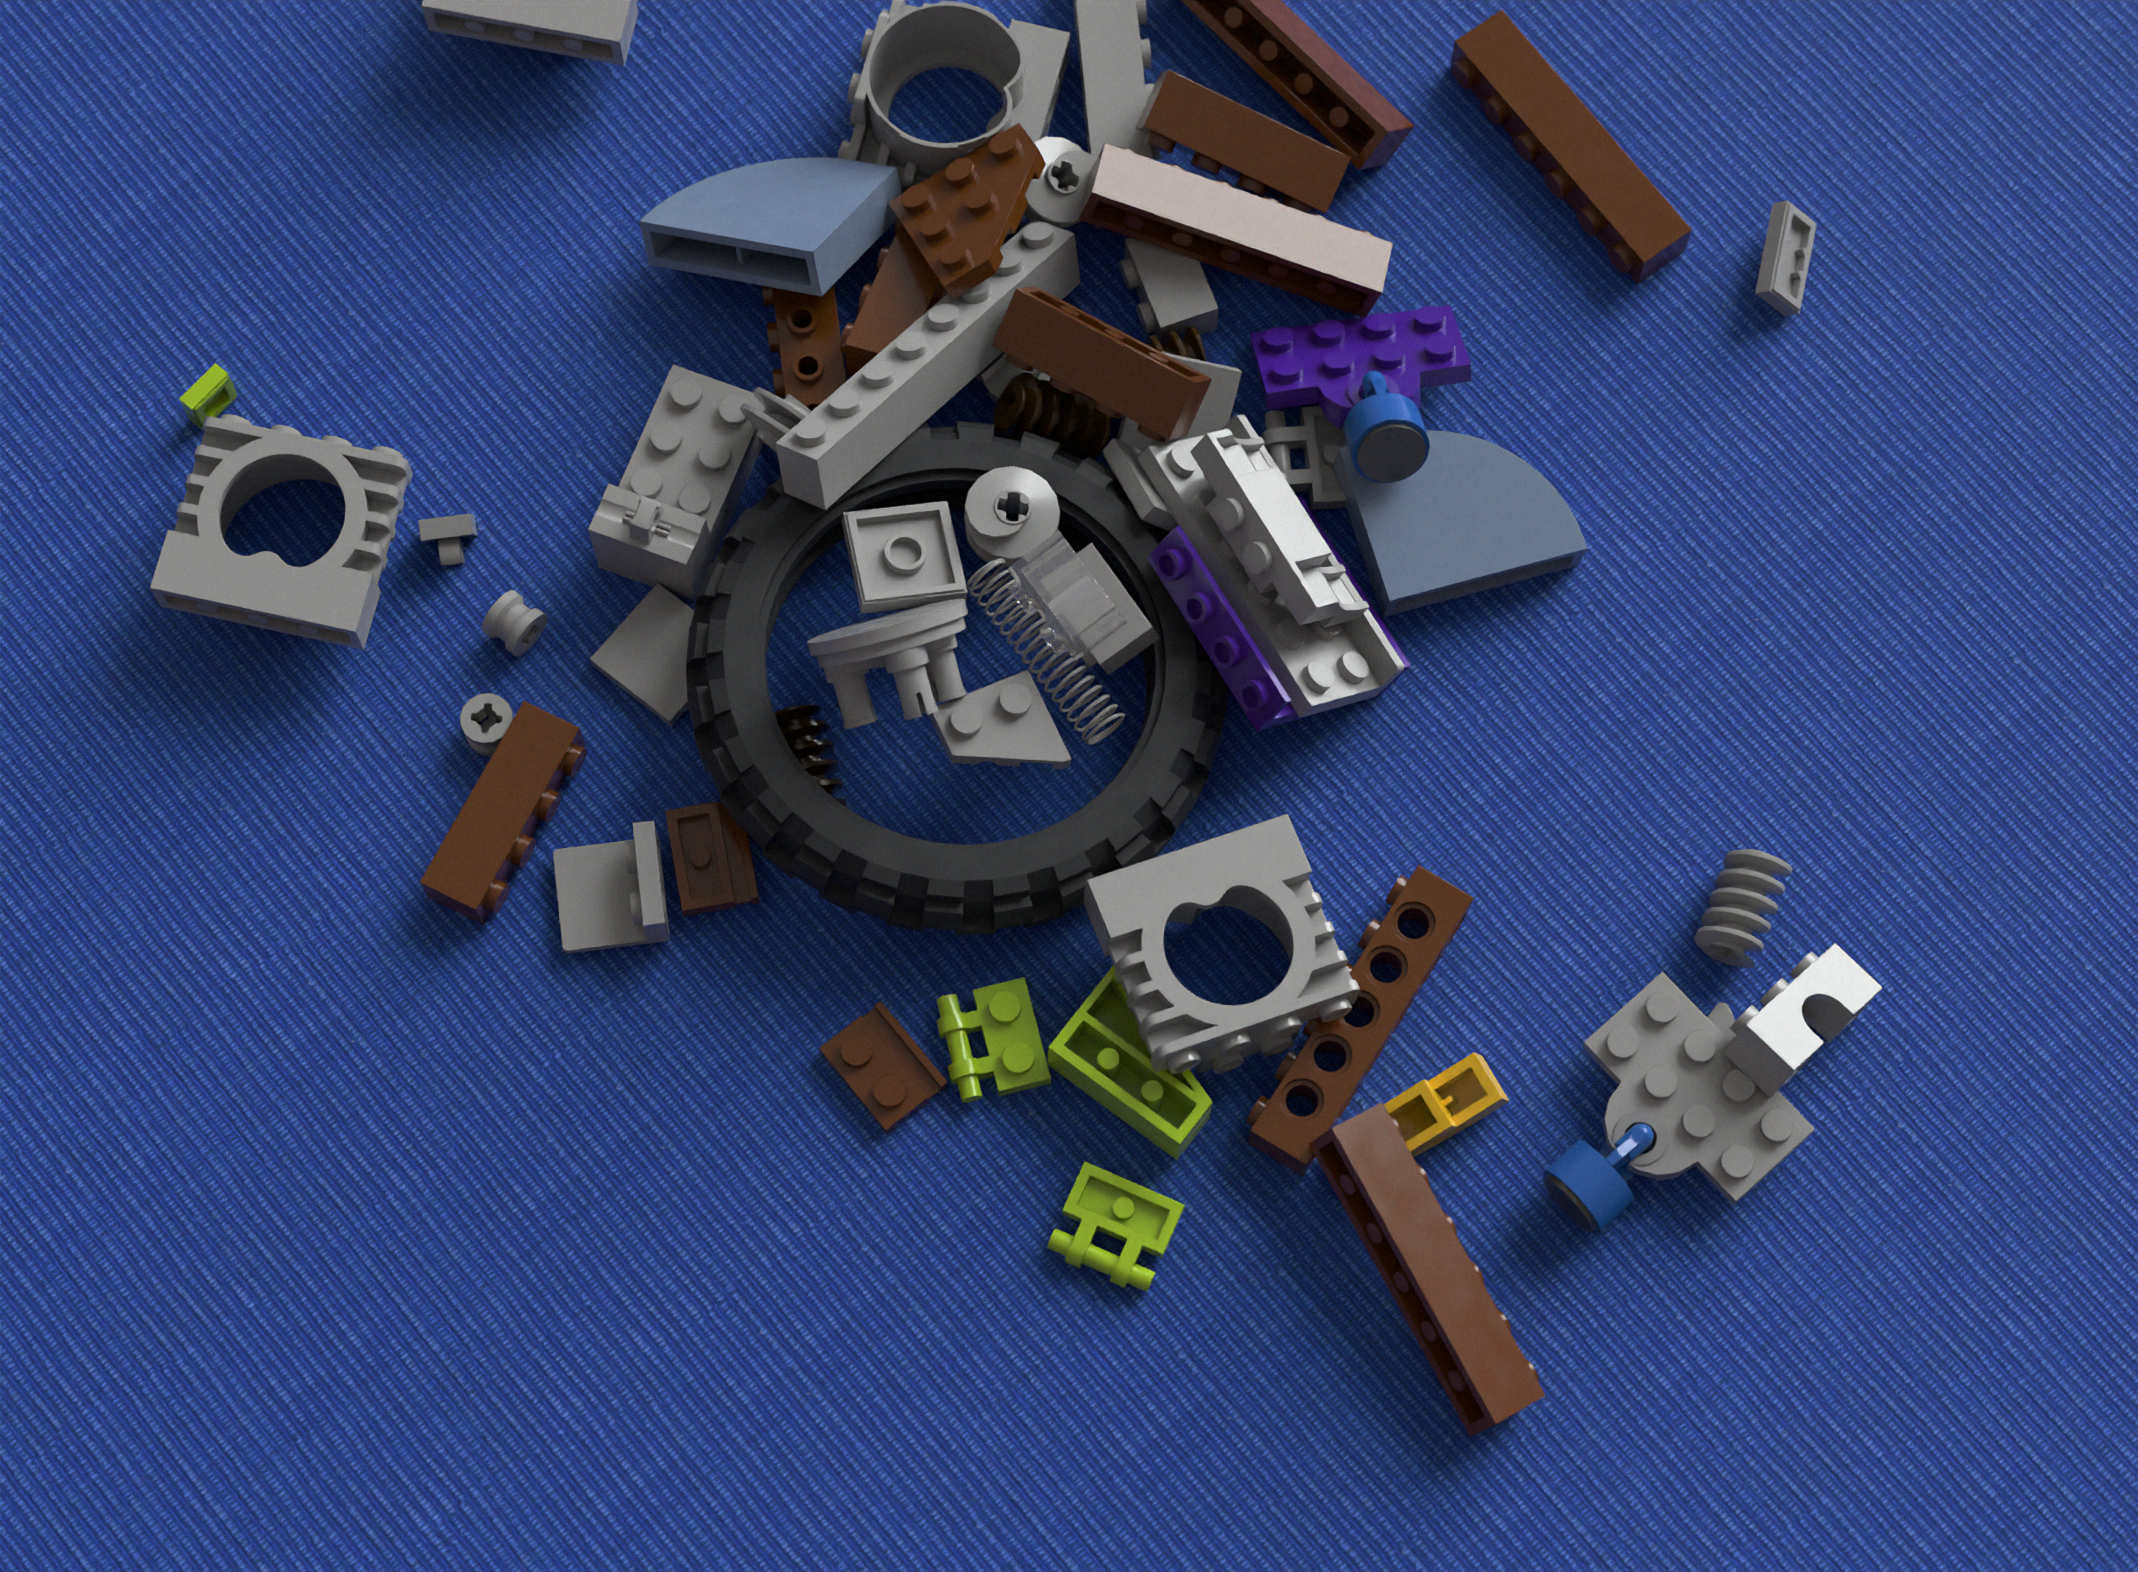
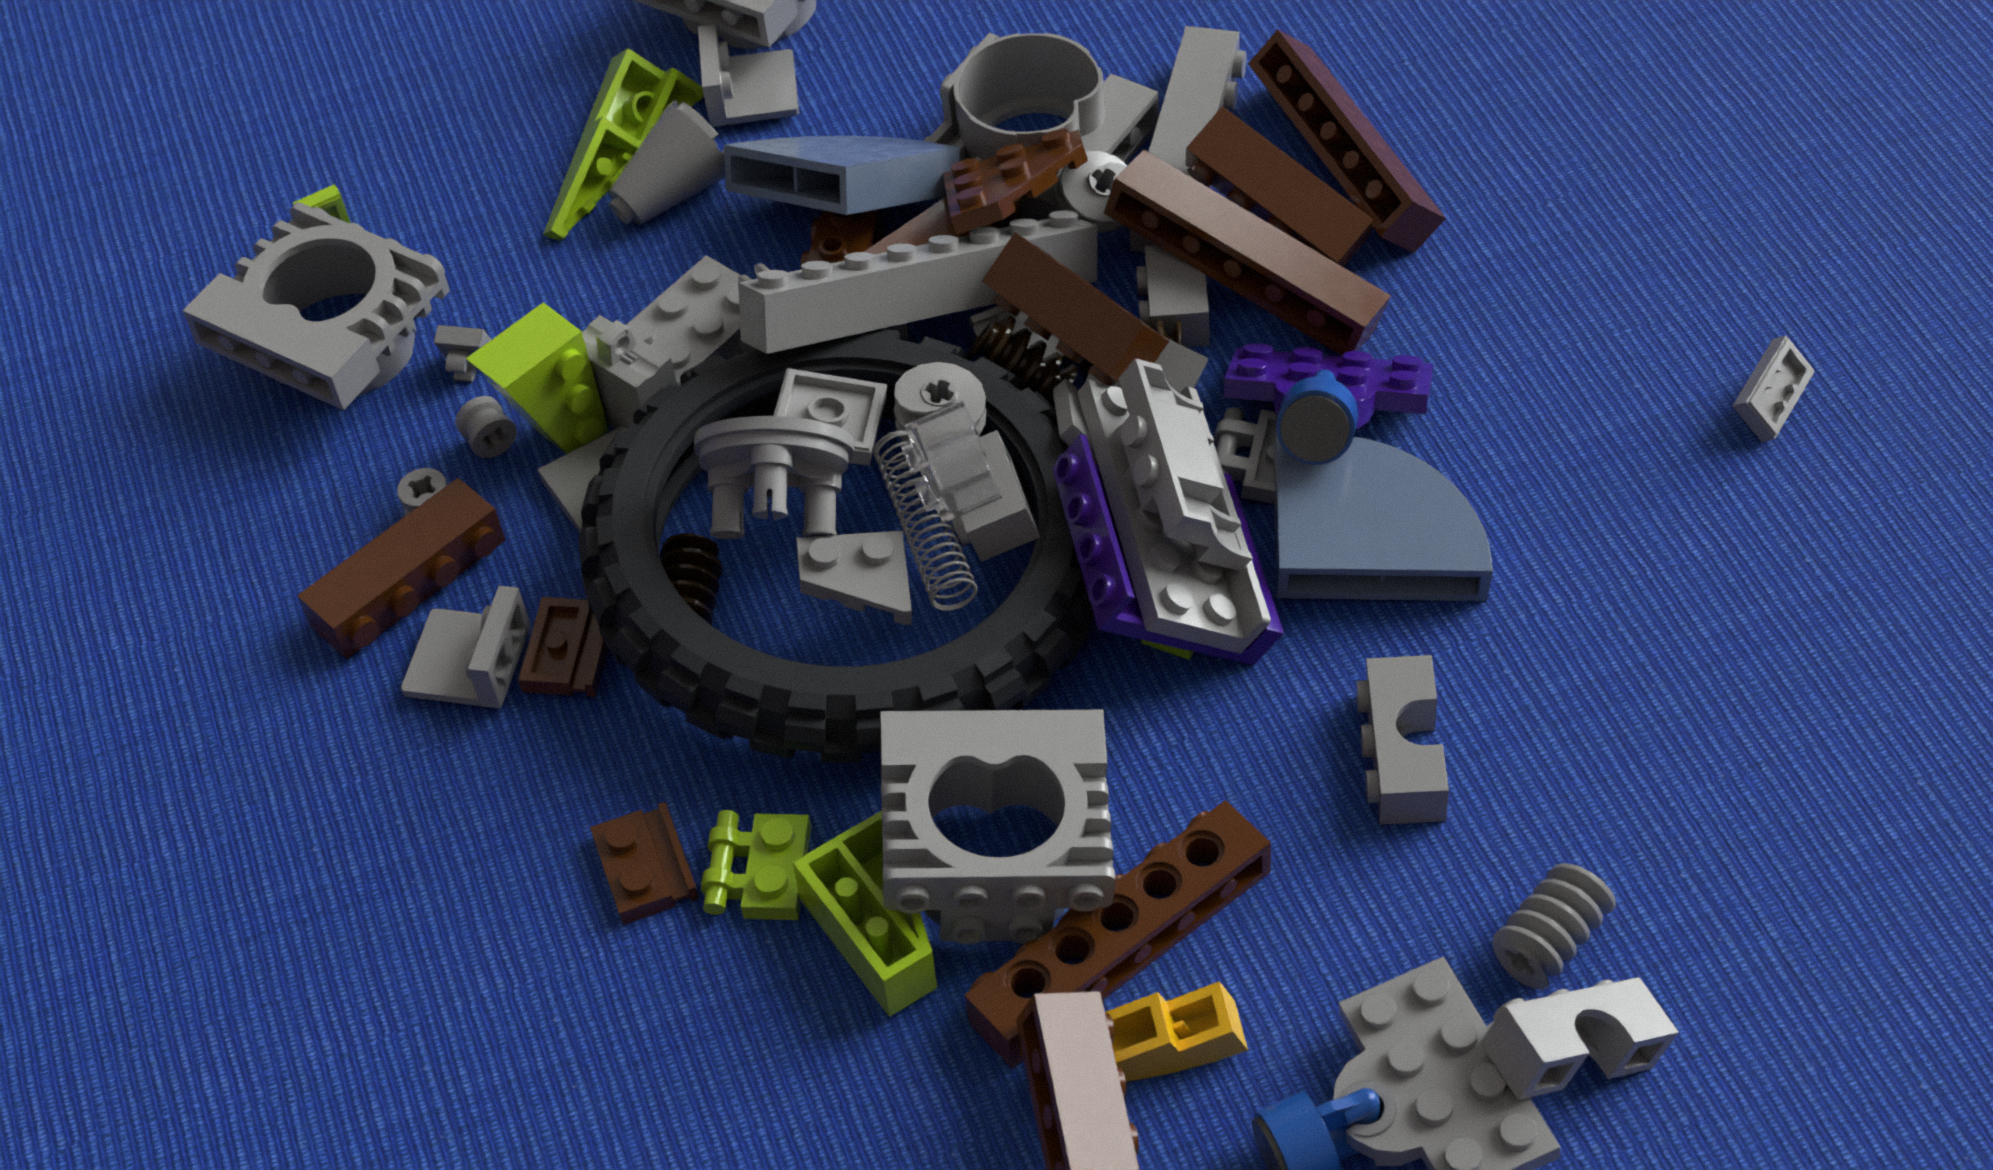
camera: 25 degrees right, 20 degrees down
(492, 185) = (621, 118): none -> lime wedge
(575, 249) = (668, 166): none -> light grey cone
(581, 570) = (546, 377): none -> lime wedge
(609, 108) = (745, 85): none -> light grey bracket
(1122, 1211) = (811, 1043): lime plate -> none
(1564, 788) = (1407, 777): none -> light grey arch
(1569, 147) = (1590, 266): reddish brown brick -> none

